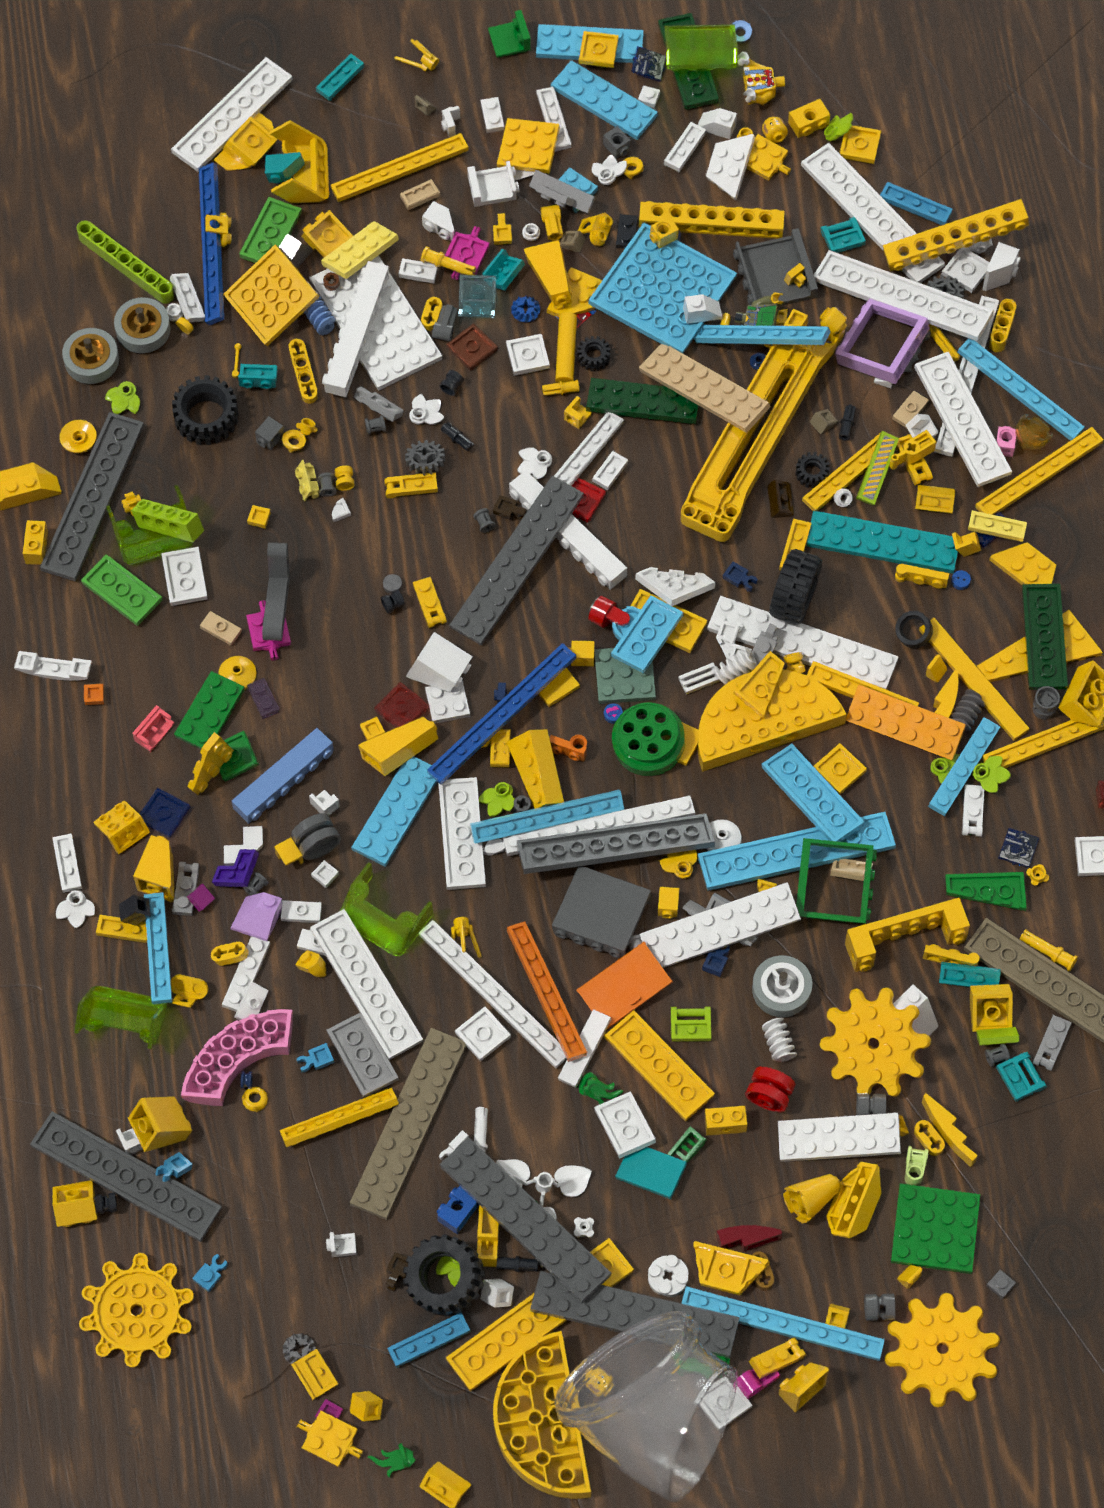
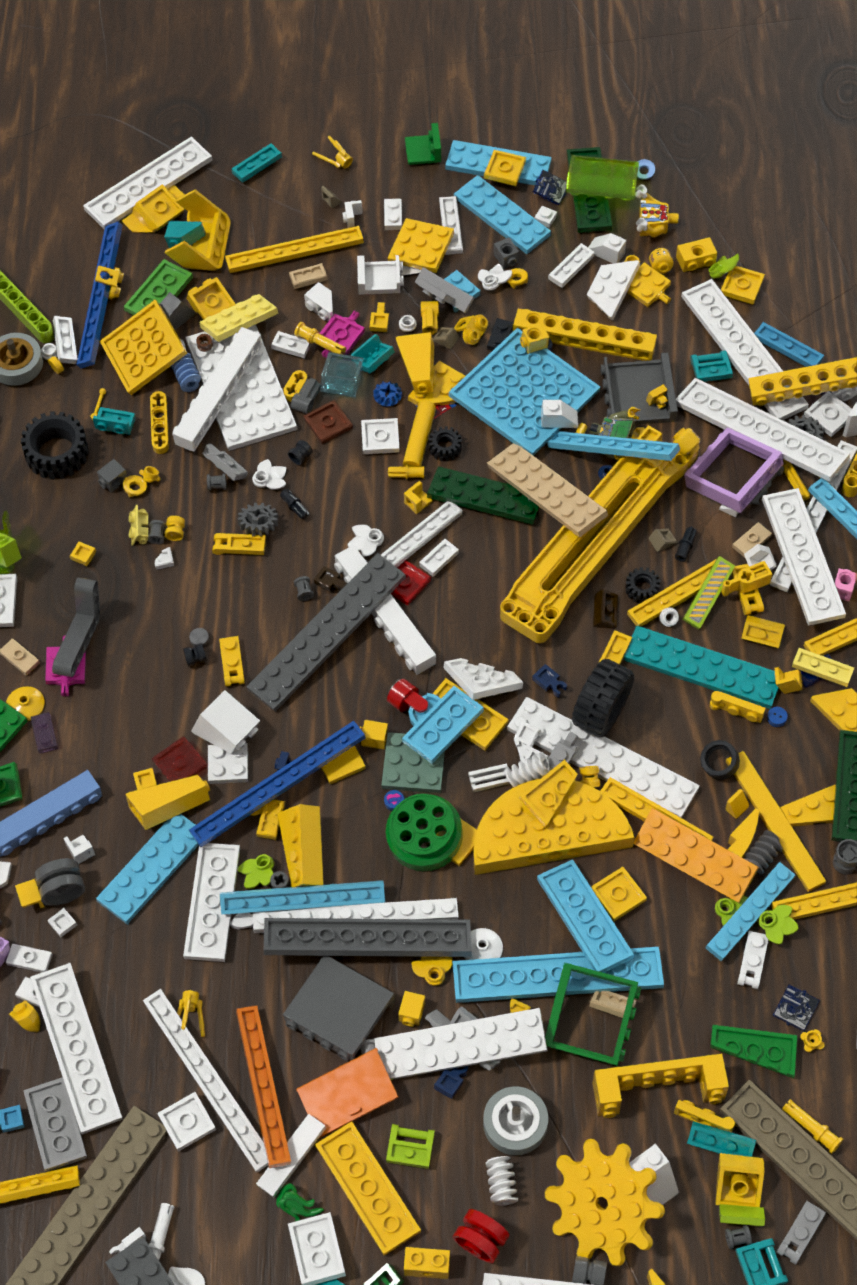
camera: 10 degrees right, 5 degrees down
(377, 926) = (115, 998): clear neon green windscreen -> none
(565, 747) = (333, 826): orange plate -> none

